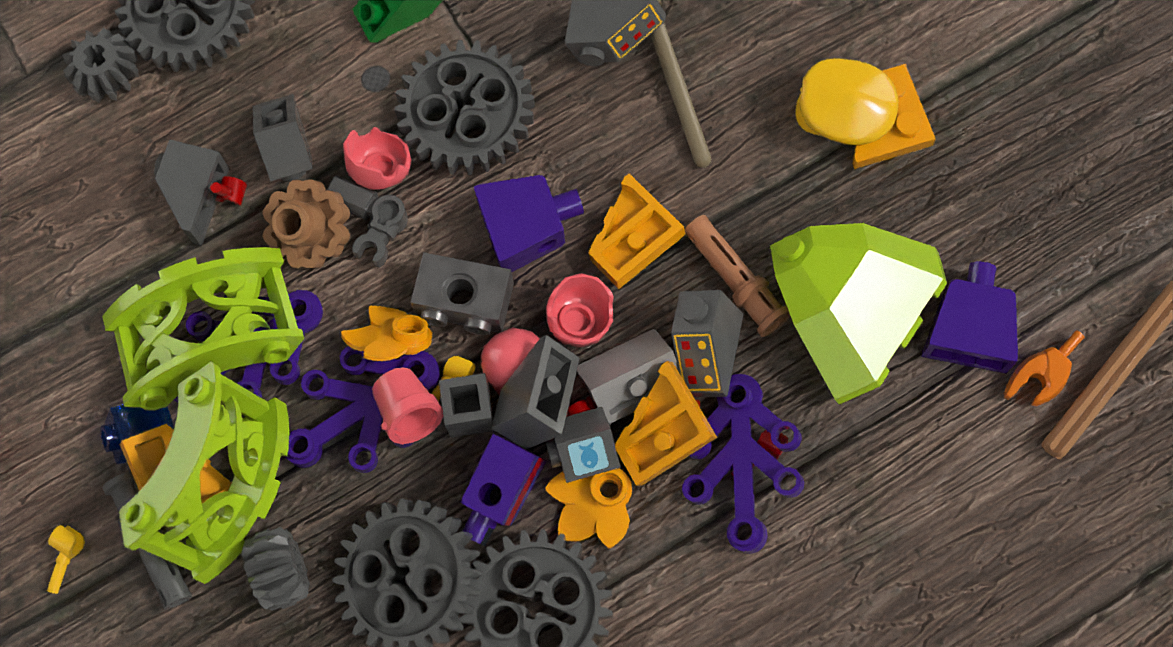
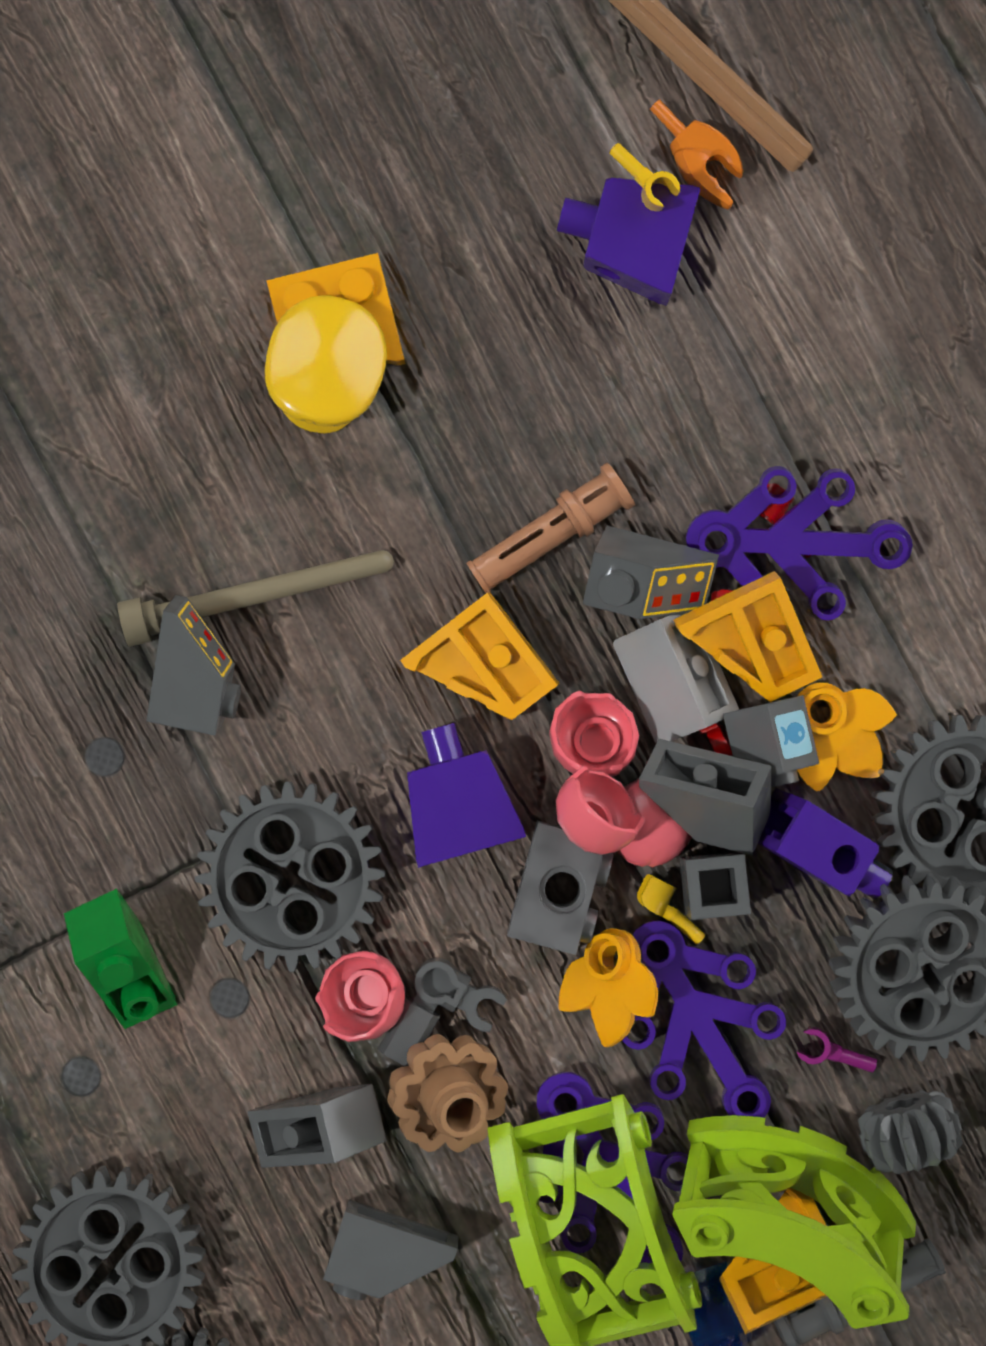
camera: 90 degrees left, 15 degrees up
(229, 189) = (390, 1197): red hand -> none
(341, 509) = (836, 1053): none -> magenta hand
(406, 406) = (715, 964): coral piece -> none
(520, 306) = (597, 812): none -> coral hair
(855, 298) = (603, 379): lime brick -> none
(1019, 316) = (645, 177): none -> yellow hand

